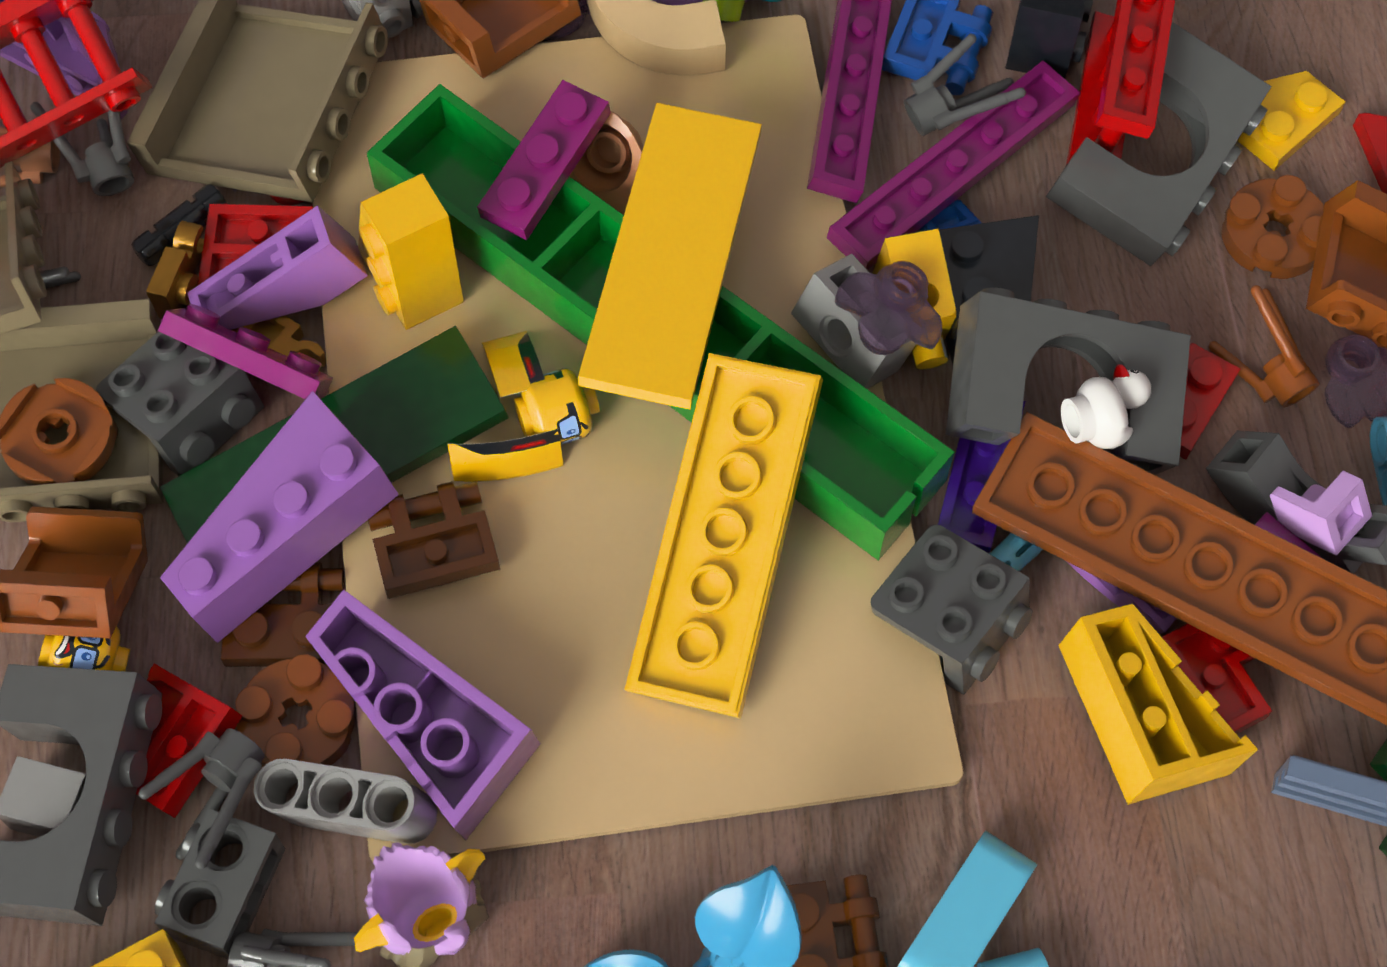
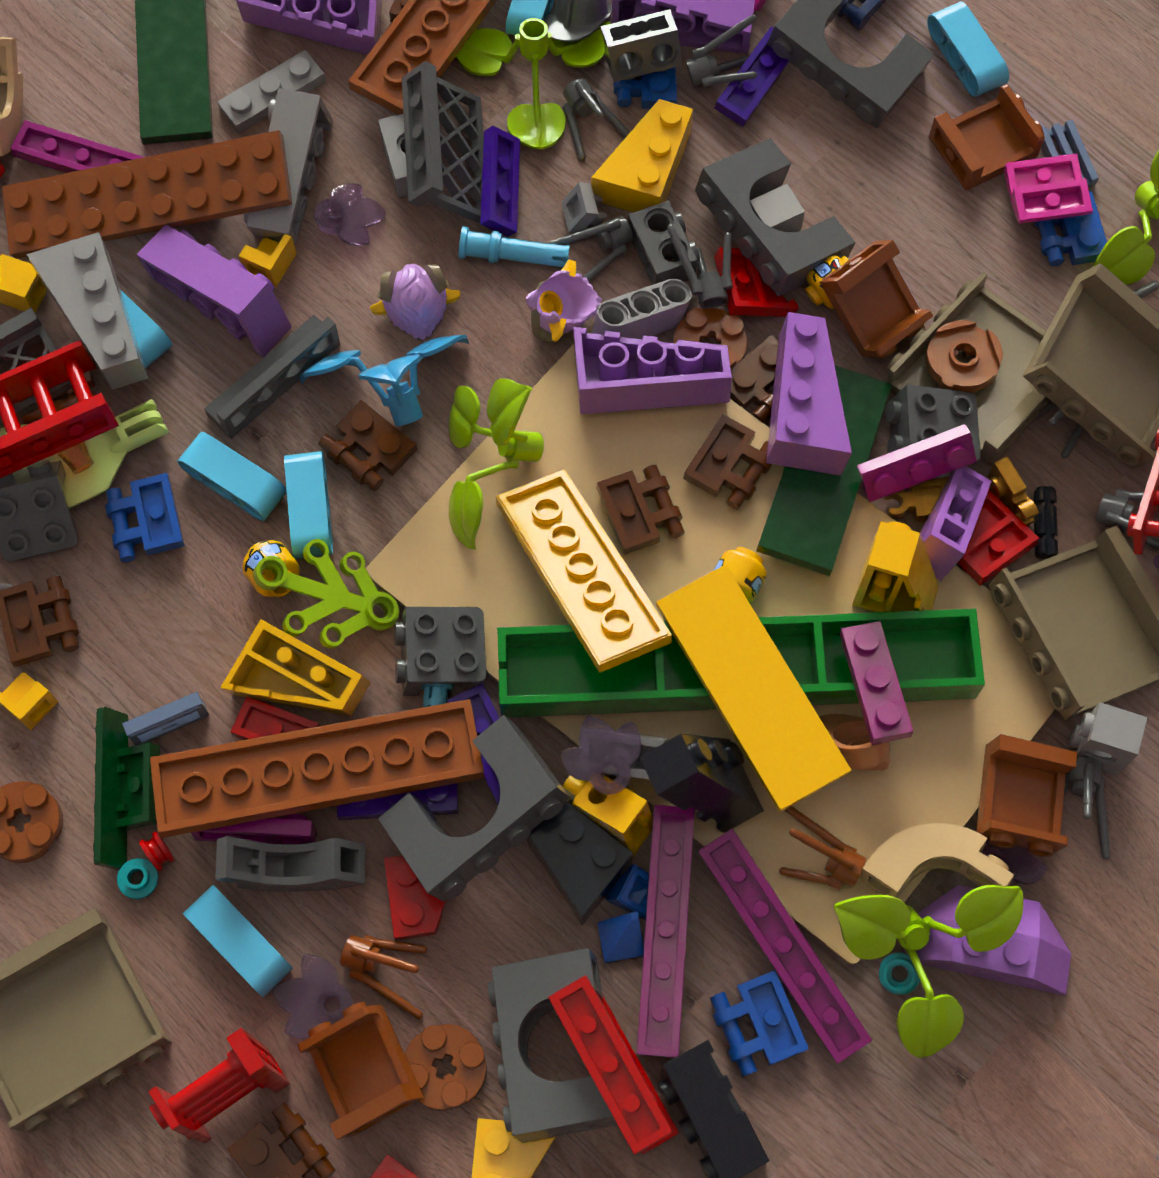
camera: 140 degrees right, 5 degrees up
(506, 458) = (726, 540): yellow sticker -> none
(513, 363) = (785, 579): yellow sticker -> none
(600, 576) = (630, 514): none -> reddish brown plate
(656, 745) = (504, 411): none -> lime plant
(736, 83) = (842, 861): none -> dark orange plant
(806, 221) = (704, 776): none -> black wedge
(936, 108) = (714, 957): dark grey plant -> none
(1000, 200) = (621, 938): none -> blue slope
(1036, 763) = (332, 593): none -> lime plant
(1077, 872) = (264, 549): none -> yellow head
(1101, 408) = (442, 794): white animal -> none
(1325, 515) = (276, 847): lavender panel -> none

